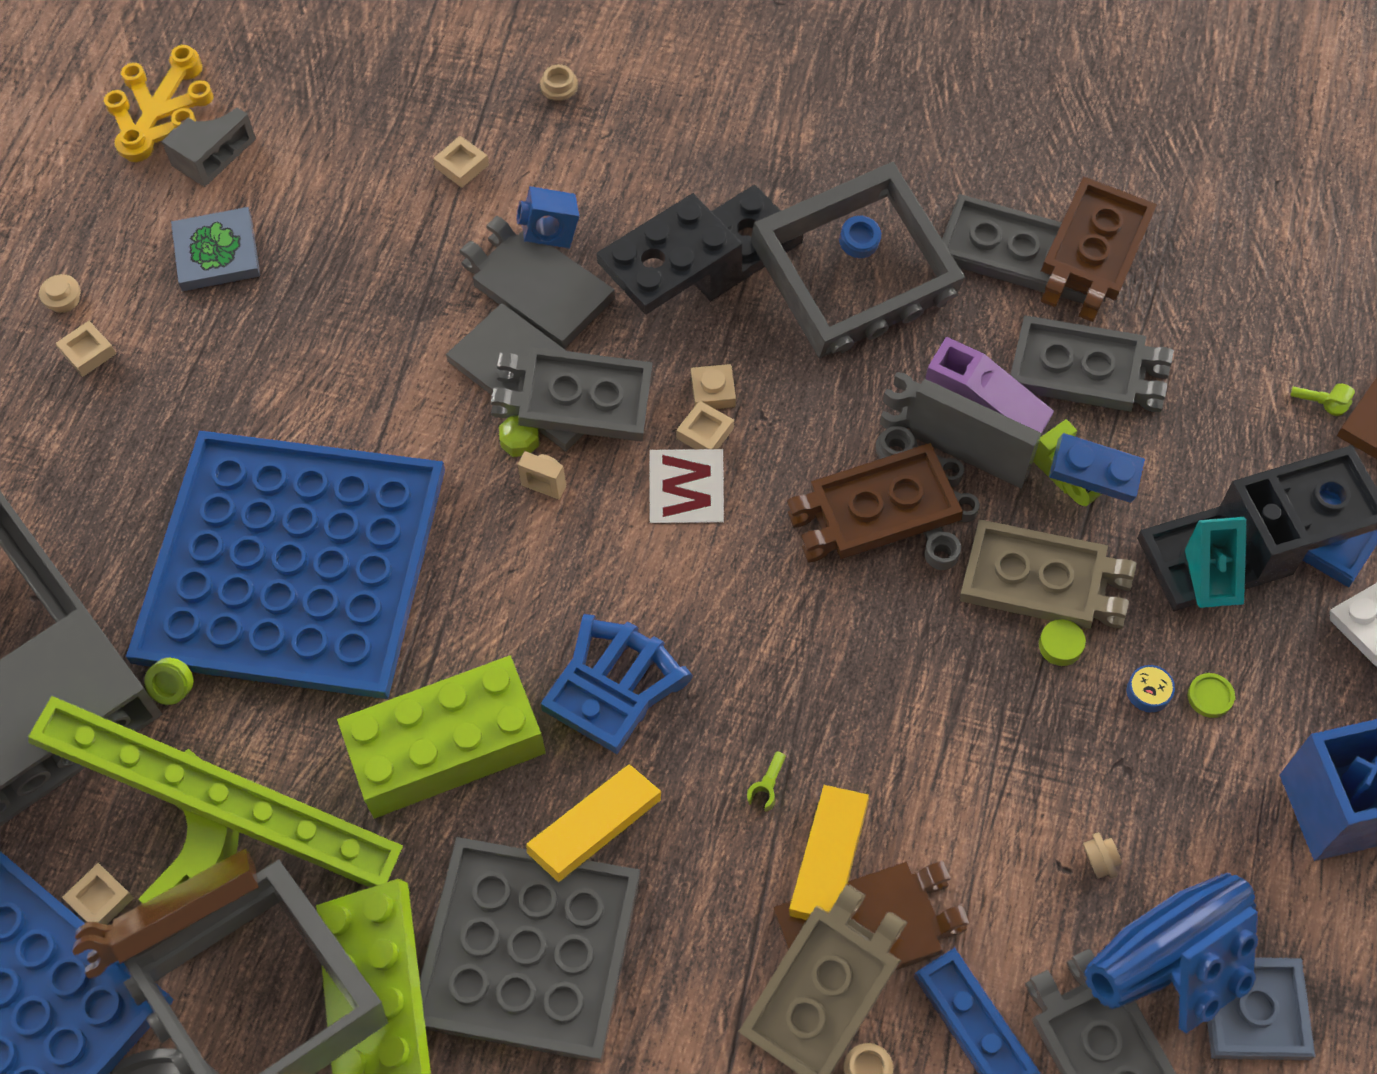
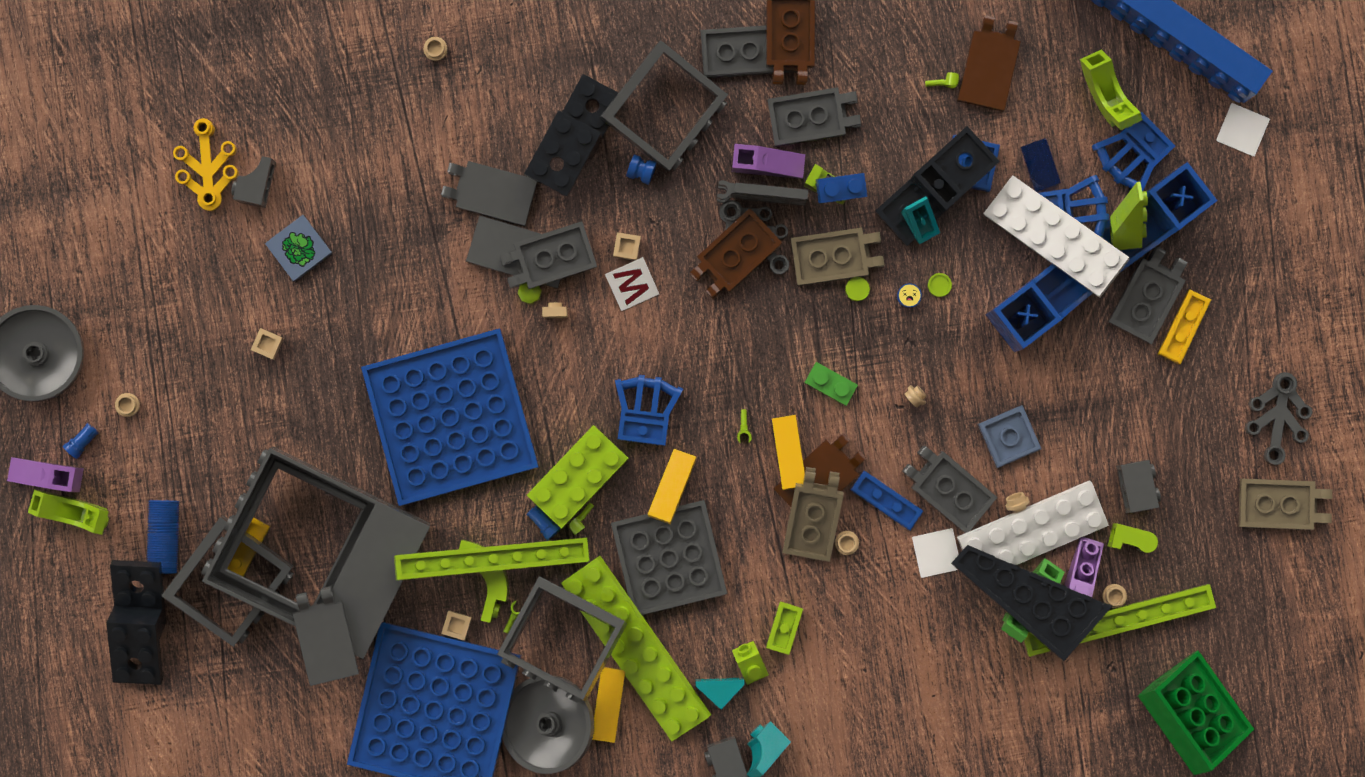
camera: 25 degrees left, 25 degrees up
(60, 293) = (229, 315): tan plate -> none
(166, 913) = (505, 623): reddish brown tile -> none
(168, 681) = (427, 508): lime tile -> none
(346, 797) = (543, 522): none -> blue pin
(398, 815) = (576, 524): none -> lime hand
(461, 161) = (407, 130): tan plate -> none
(554, 230) = (480, 152): blue brick -> none
(714, 386) = (618, 216): tan plate -> none
(781, 333) = (639, 168): none -> blue wheel
(860, 236) = (662, 98): blue tile -> none
(953, 775) = (831, 383): none -> bright green plate
(1193, 939) = (968, 427): blue plate -> none

